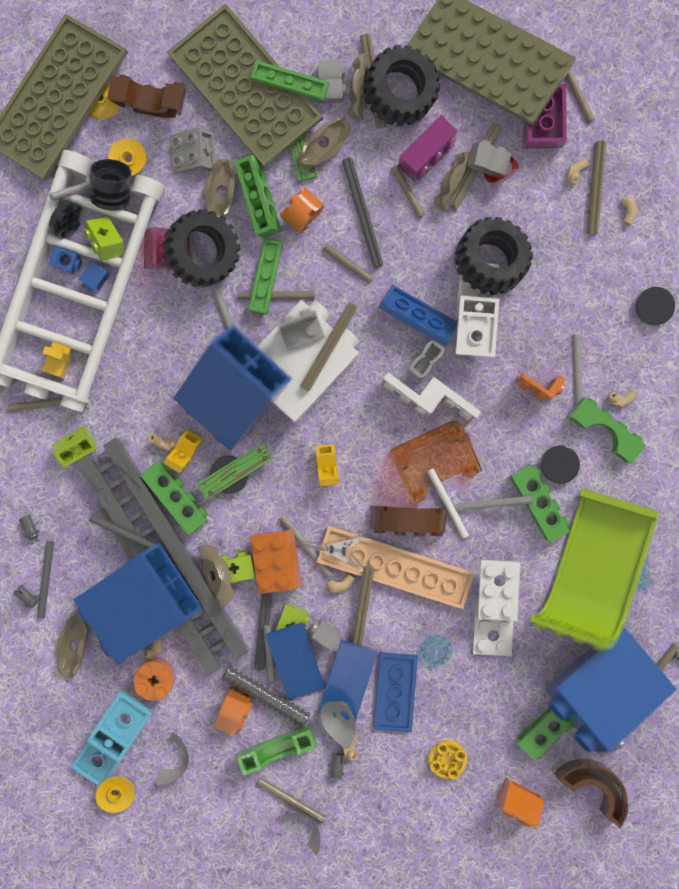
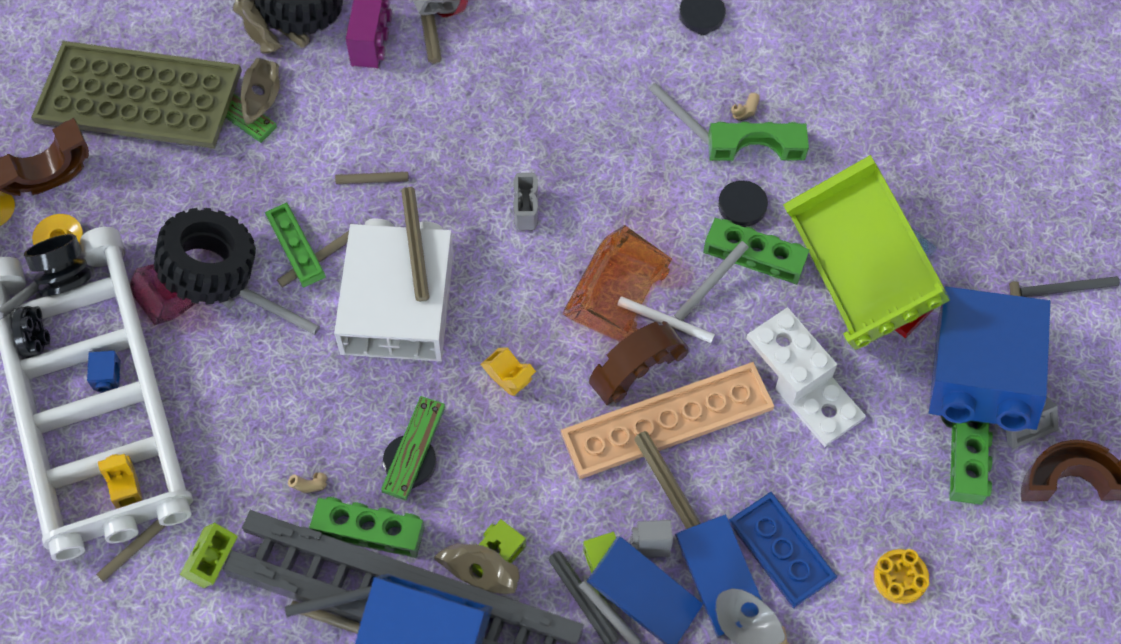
camera: 35 degrees left, 25 degrees down
(58, 257) = (51, 371): blue brick -> none
(103, 238) = (88, 321): lime brick -> none
(184, 451) = (340, 469): yellow brick -> none
(192, 150) = (124, 184): light grey bracket -> none
(221, 175) = (174, 186): dark tan piece -> none
(231, 387) = (342, 353): blue brick -> none
(258, 196) = (228, 176): bright green brick -> none
(276, 561) = (534, 505): orange brick -> none
(289, 81) = (181, 57): bright green tile -> none
(300, 329) = (370, 243): light grey bracket -> none
(302, 210) = (285, 156): orange brick -> none
(312, 553) = (552, 472): light grey bar -> none
(333, 72) = (224, 37): light grey brick -> none
(338, 549) = (591, 440): piece -> none
(339, 587) = (627, 484): tan arm -> none
(362, 212) = (349, 125): dark grey axle -> none
(407, 191) = (379, 78): dark tan bar -> none
(418, 315) = (483, 167): blue tile -> none
(430, 397) = (556, 236): white bracket -> none
(432, 658) = (779, 461): clear light blue gear -> none
(452, 181) = (415, 38): dark tan piece -> none
(476, 313) = (537, 122): white bracket -> none
(506, 238) = (511, 65): black tyre -> none
(520, 803) = (1016, 553): orange slope -> none
(554, 387) = (657, 147): orange bracket -> none

